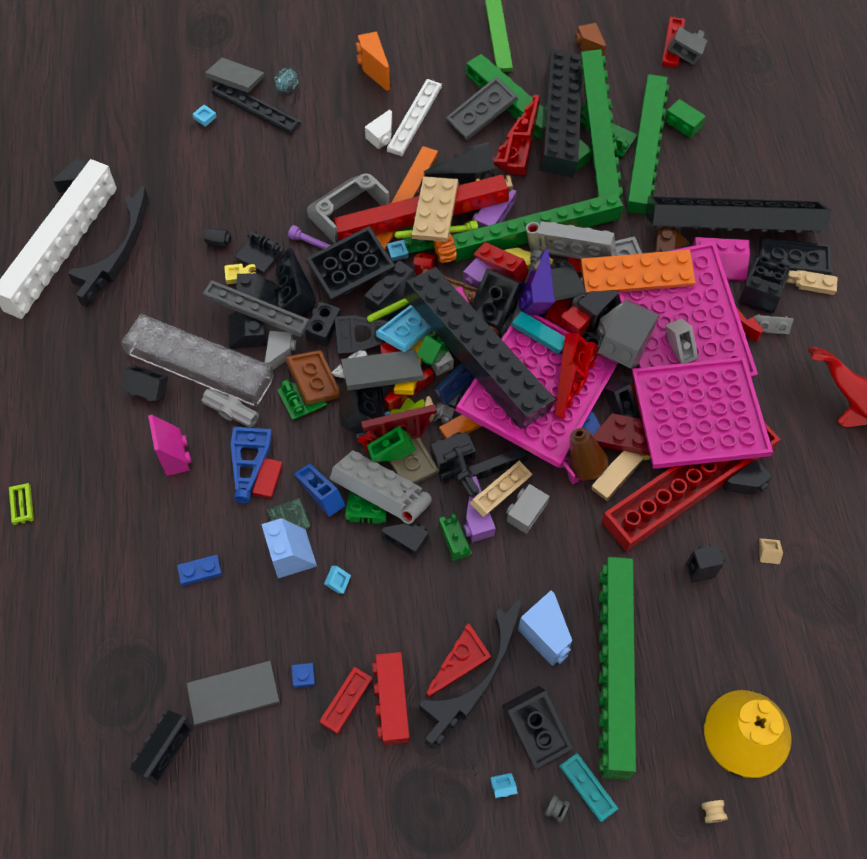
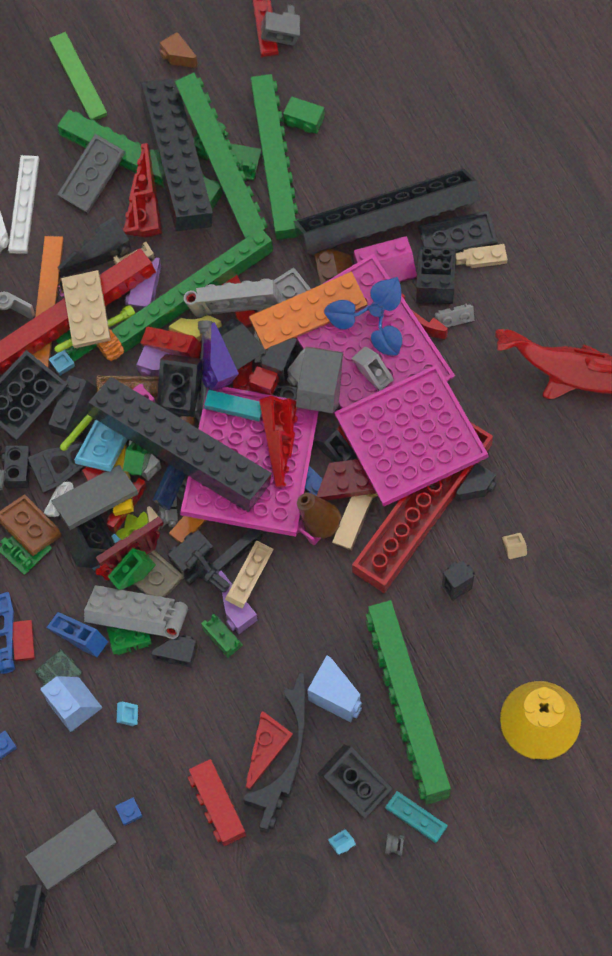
camera: 15 degrees left, 5 degrees up
(345, 700) = (176, 819): red plate -> none
(422, 261) = (93, 366): red slope -> none
(527, 509) = (280, 584): light grey brick -> none
(714, 811) = (530, 798): tan wheel -> none
(721, 274) = (385, 296): none -> blue plant

